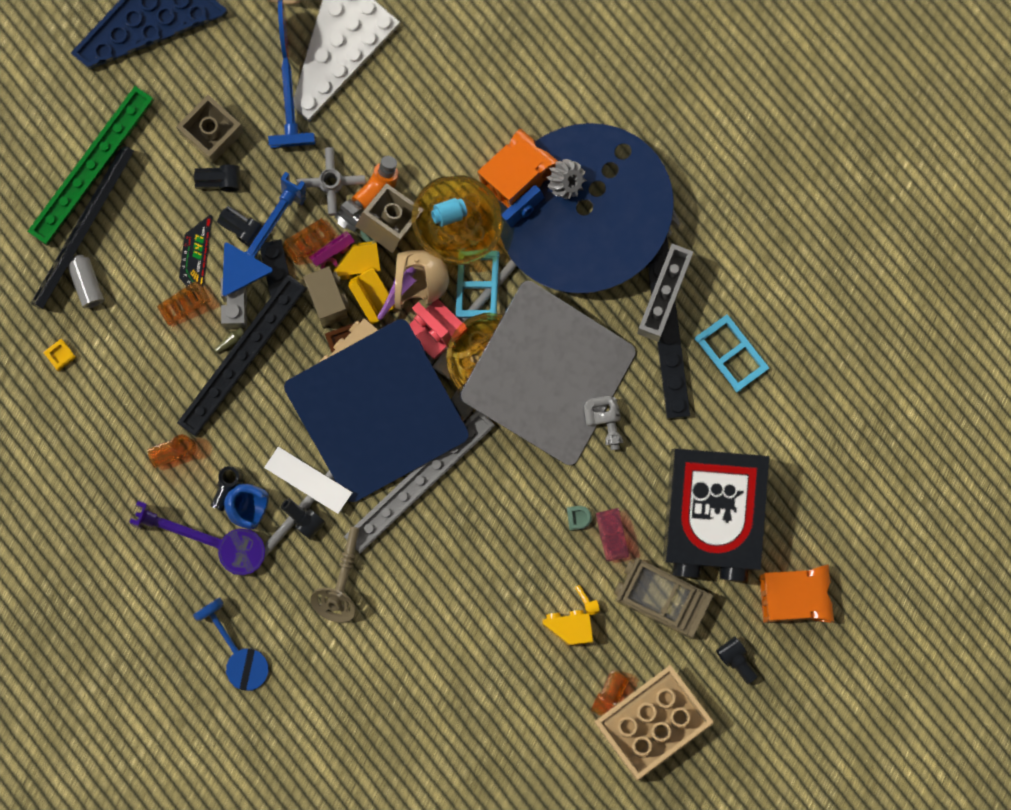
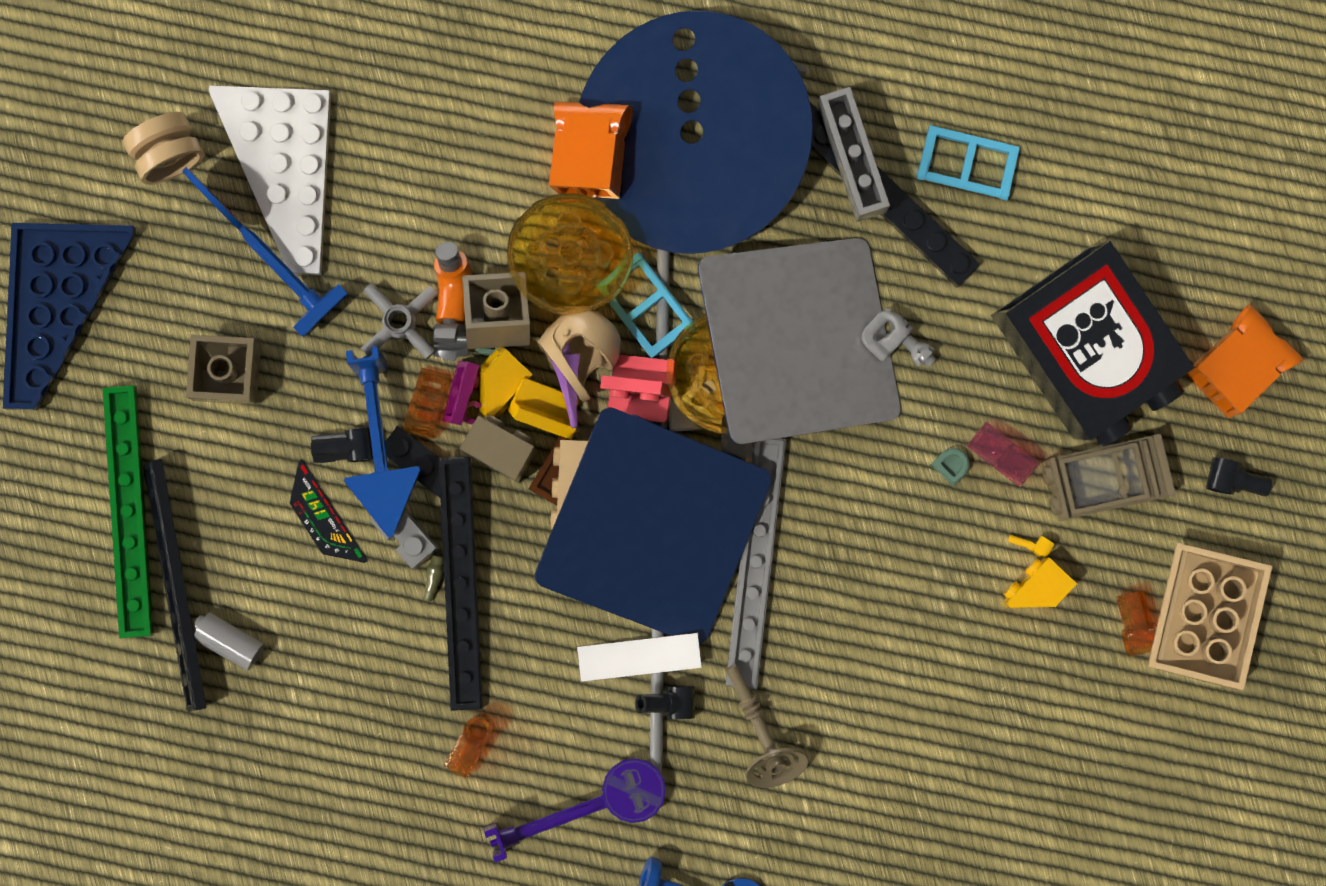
camera: 35 degrees left, 5 degrees up
(59, 355) = (265, 740): yellow tile -> none
(202, 297) = (360, 553): clear orange slope -> none
(223, 178) = (282, 409): black piece -> none
(225, 486) = (559, 735): black pin -> none
(246, 505) = (598, 738): blue piece -> none
(449, 212) = (557, 253): medium azure brick -> none
(523, 206) = (626, 183): blue plate -> none
(566, 178) = (650, 116): light grey gear -> none

